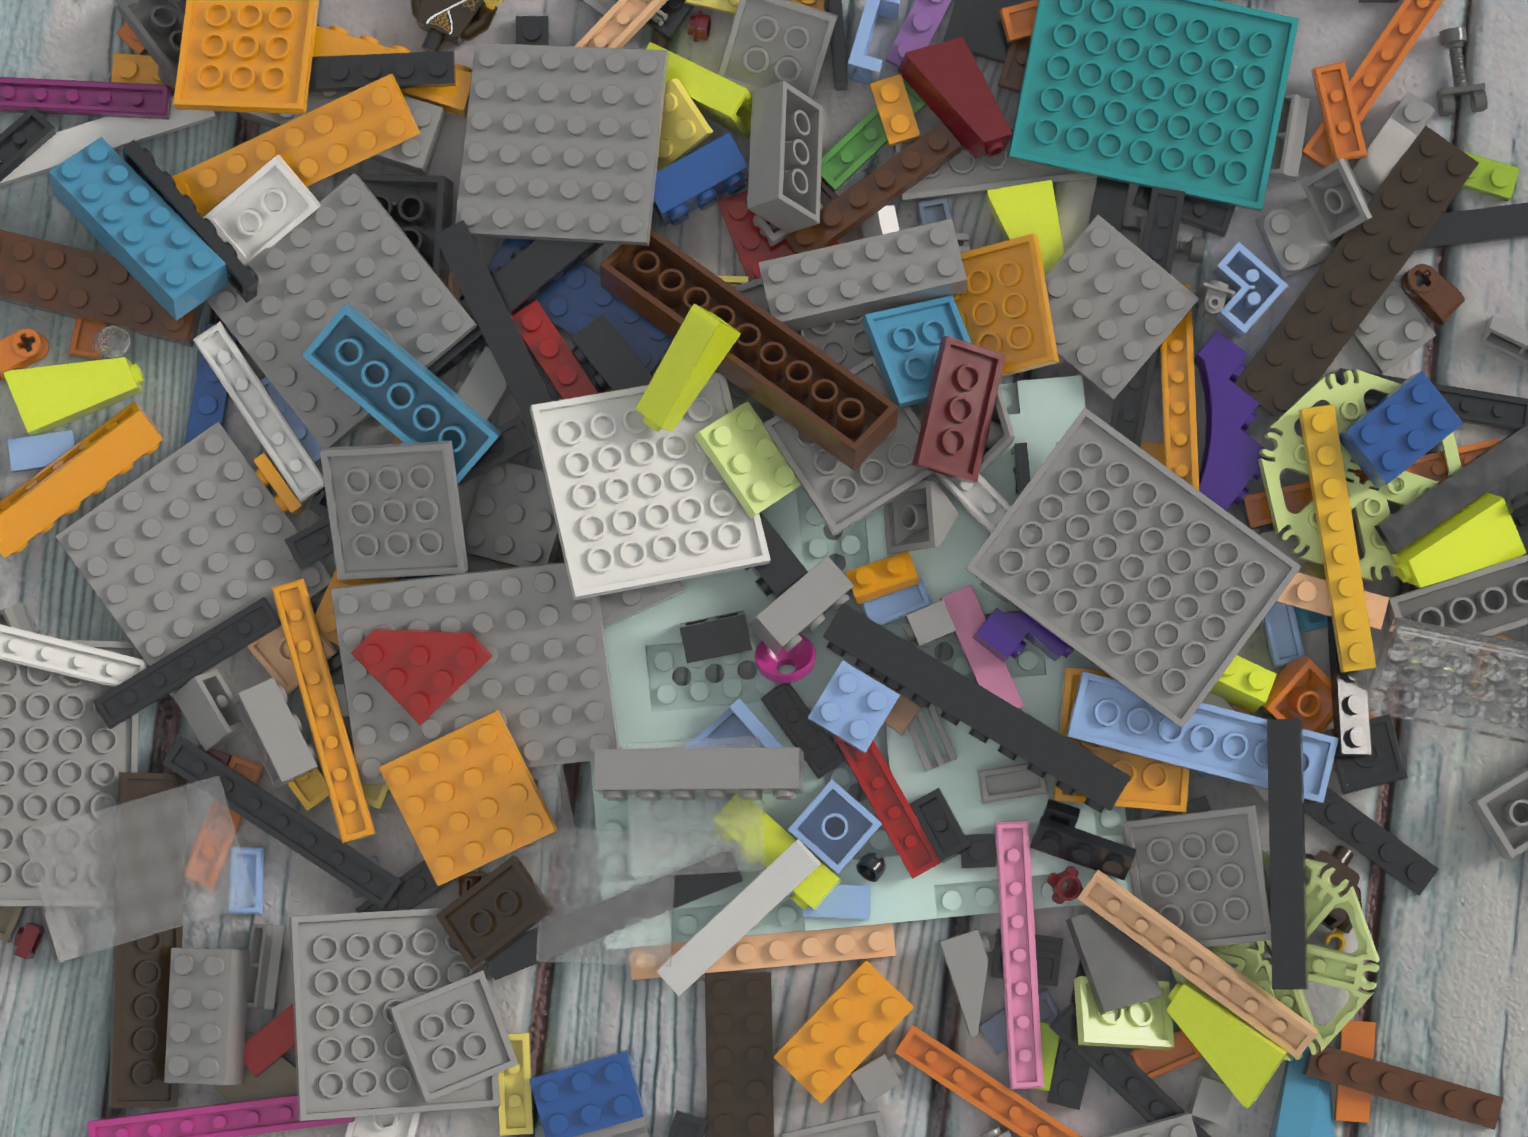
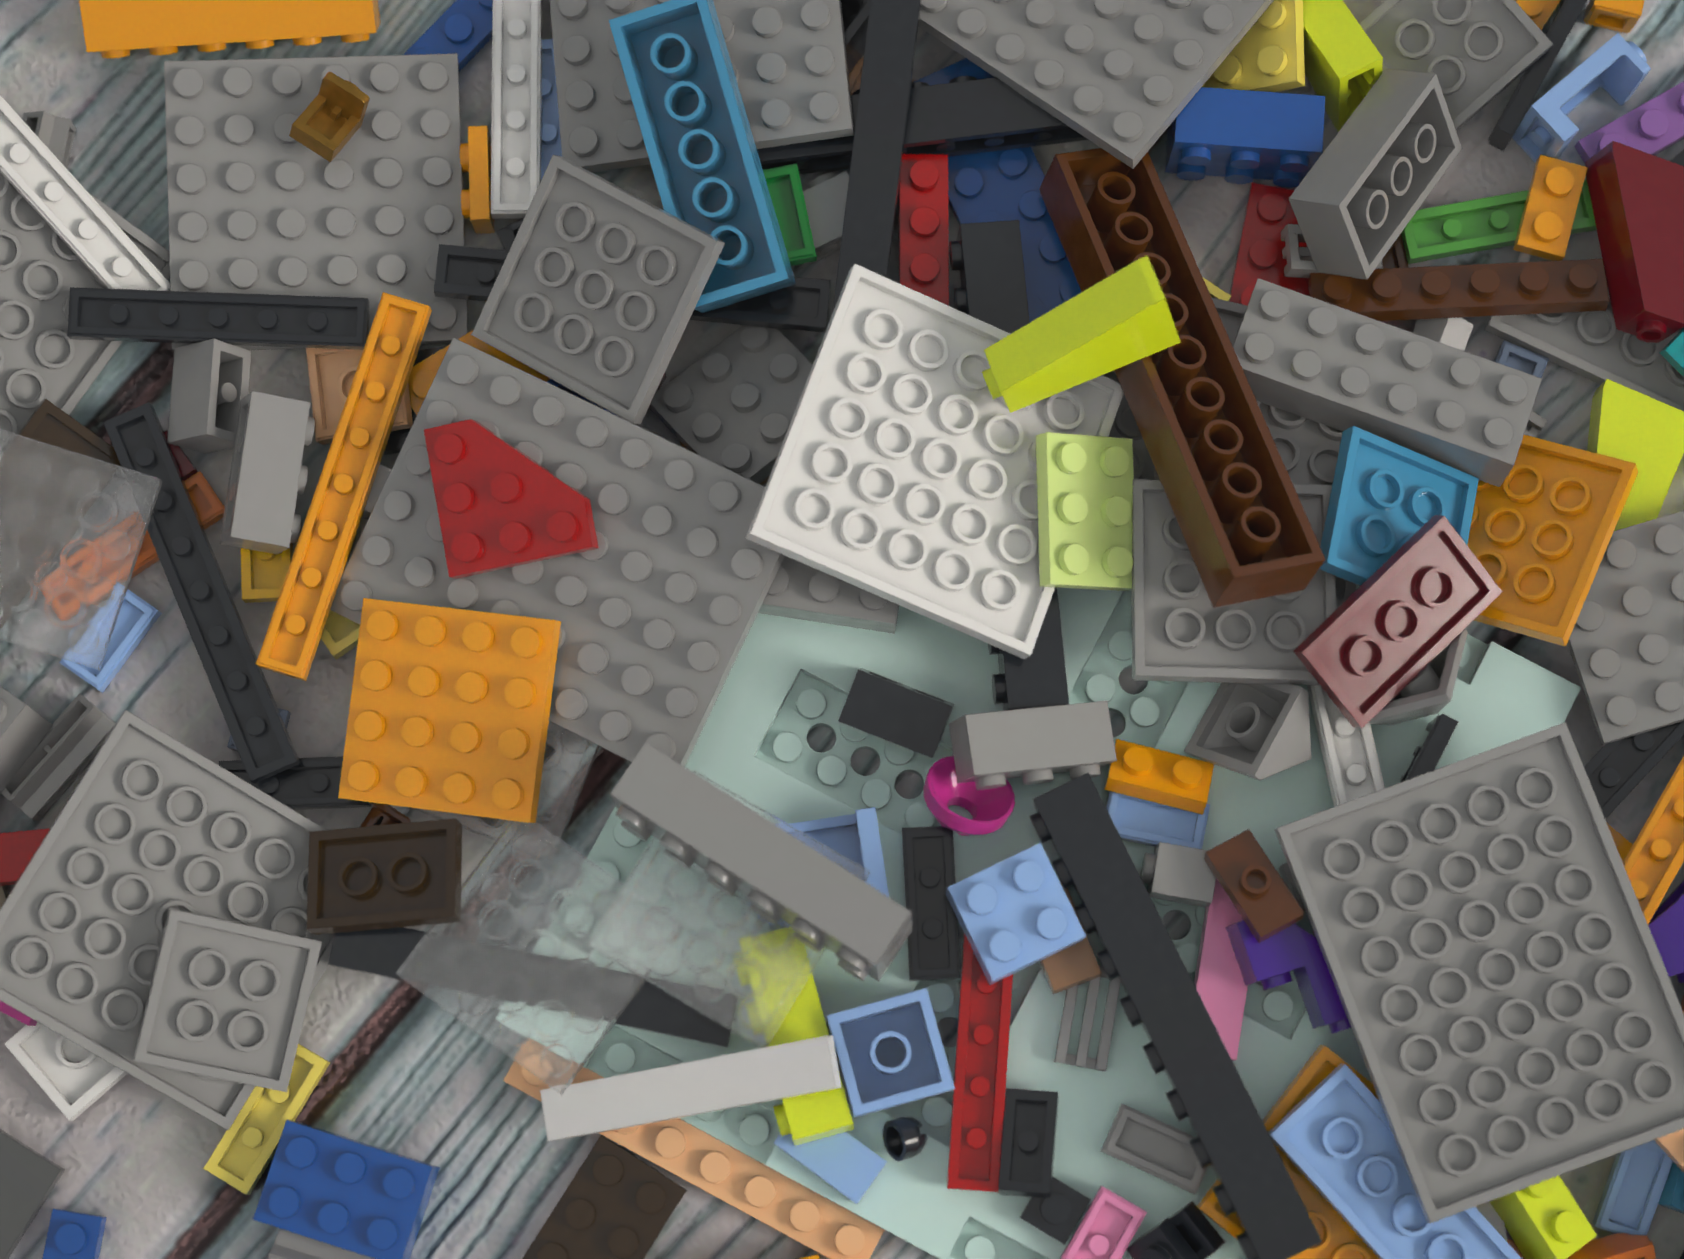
camera: 30 degrees right, 5 degrees down
(174, 507) = (331, 117): none -> pearl gold bracket
(470, 391) = (791, 213): none -> green tile
(973, 606) = (1254, 886): none -> reddish brown plate

